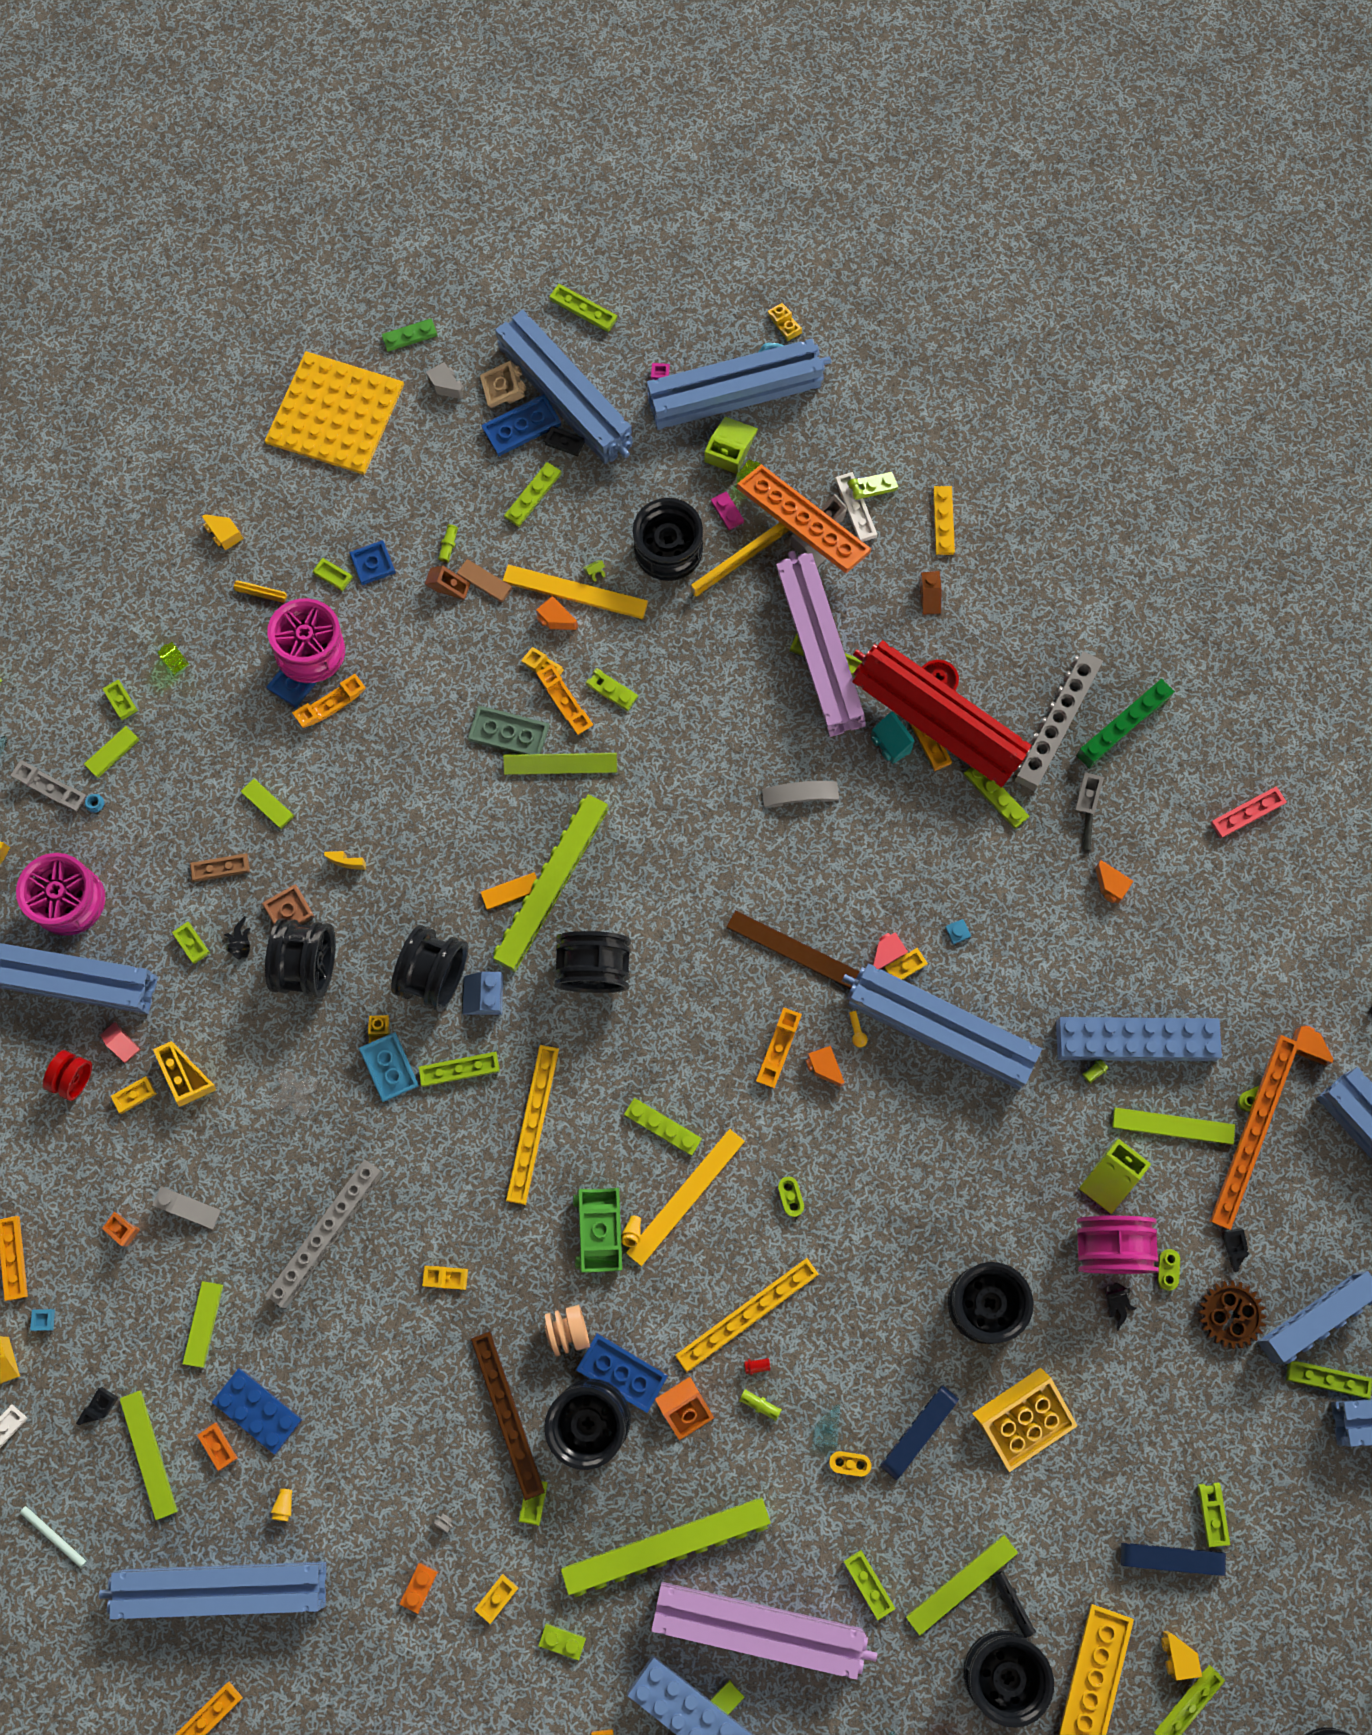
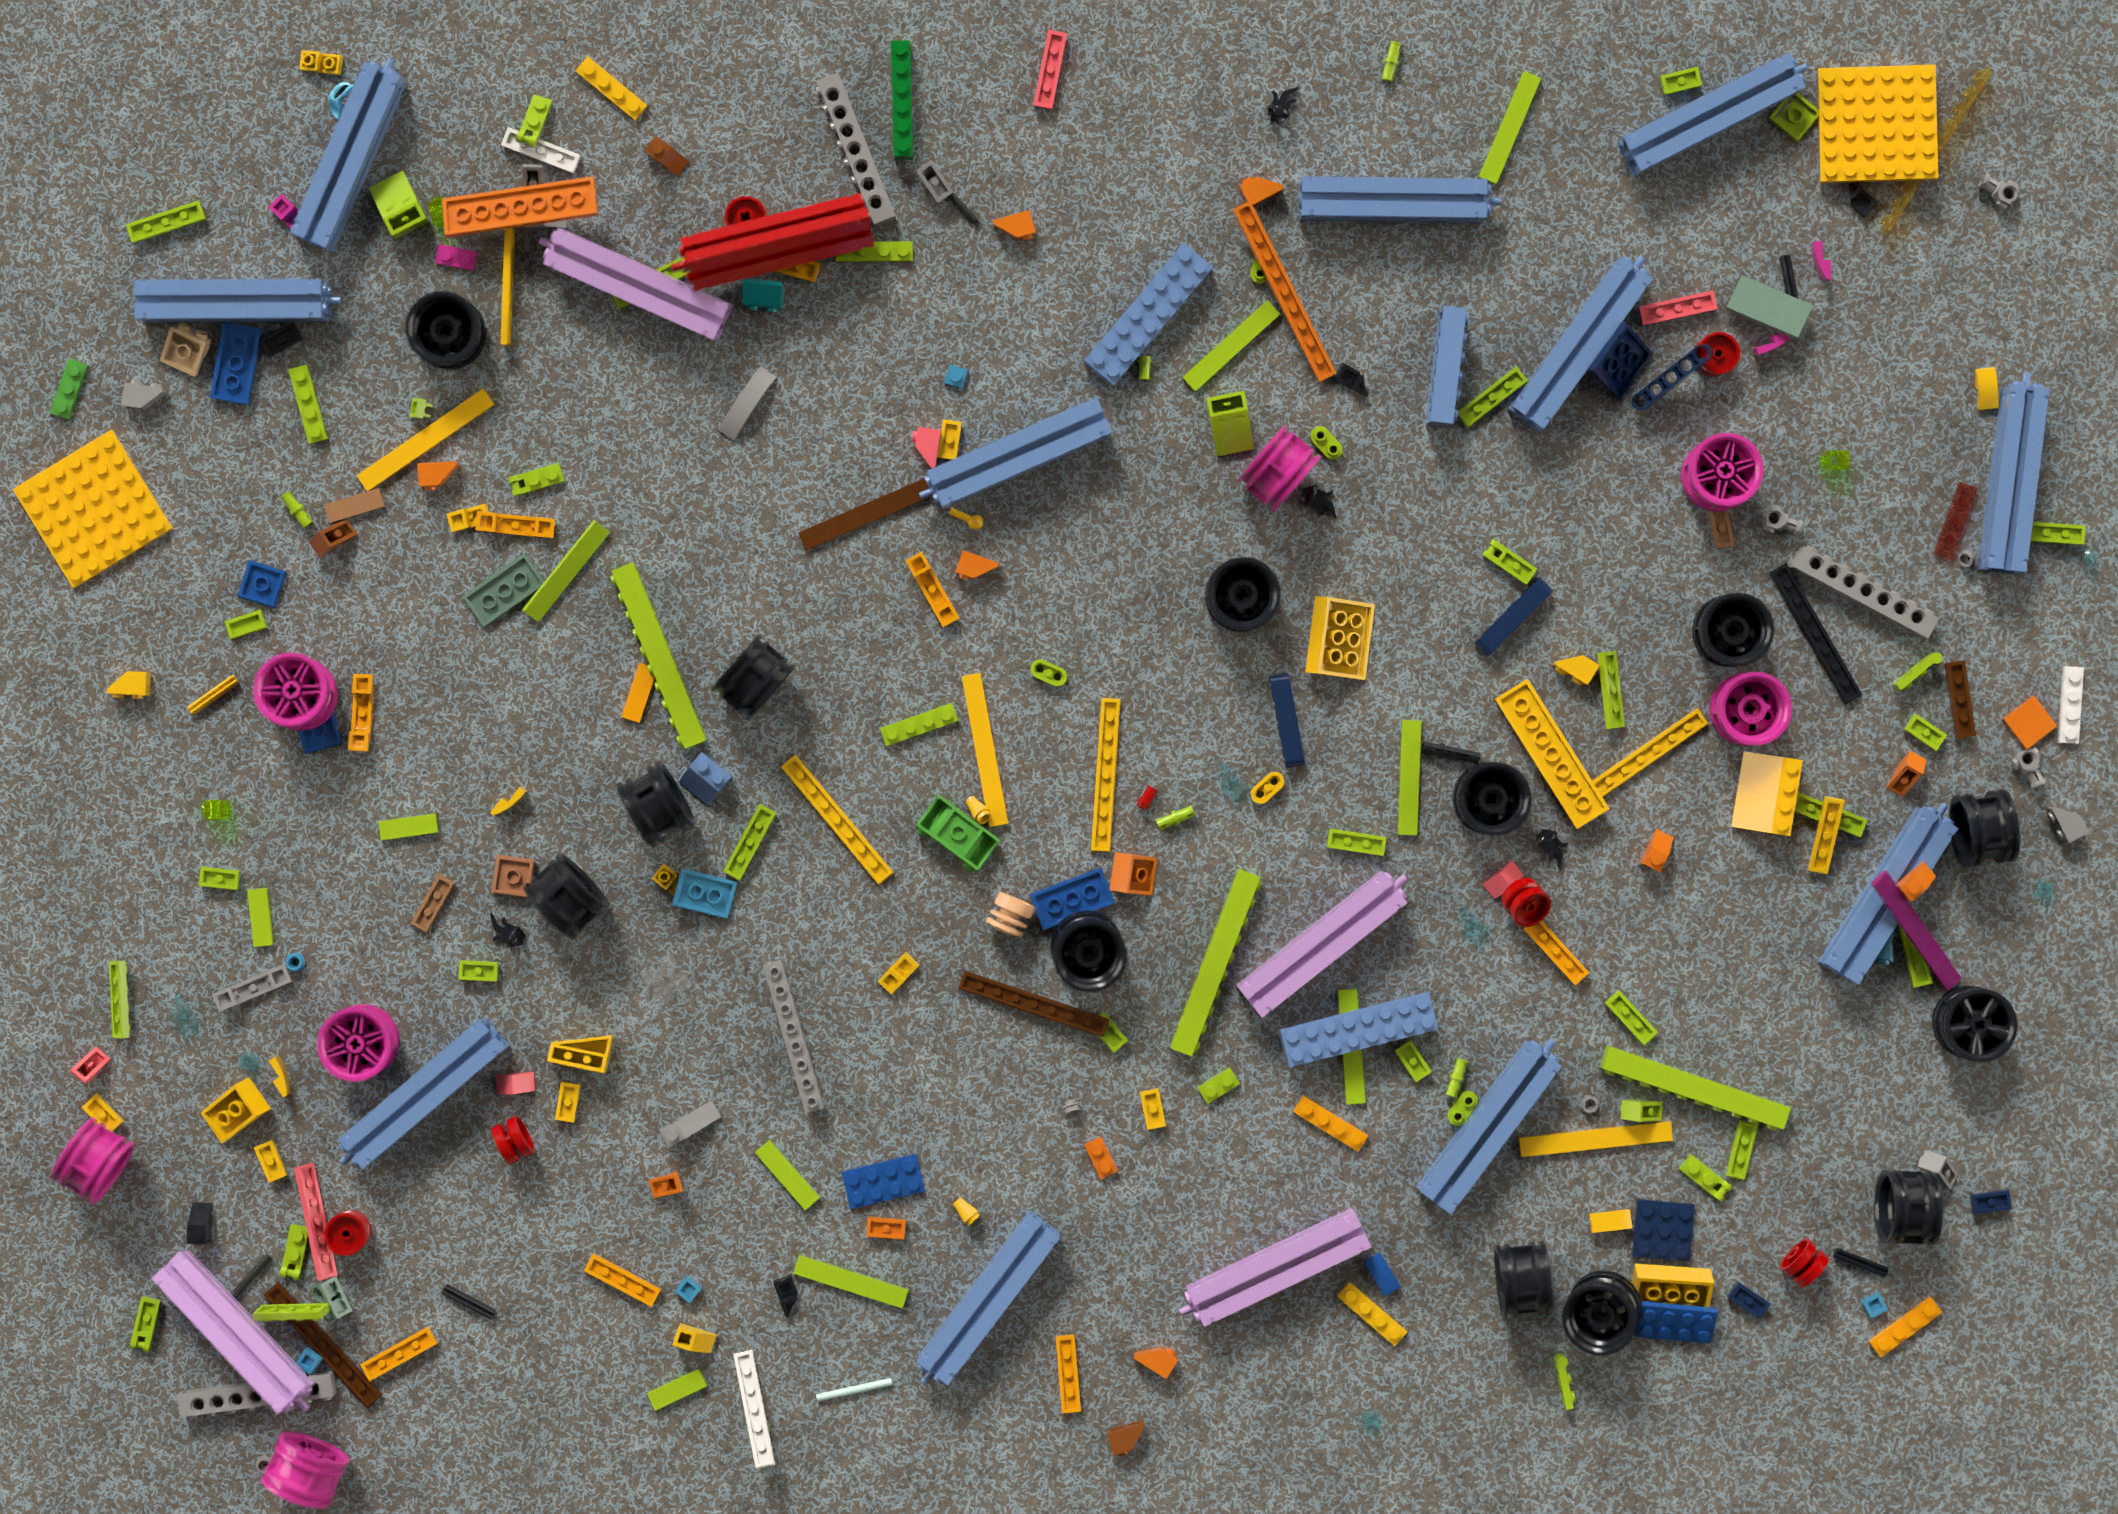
camera: 55 degrees left, 15 degrees up
(1248, 1325) = (1375, 430): reddish brown gear -> none

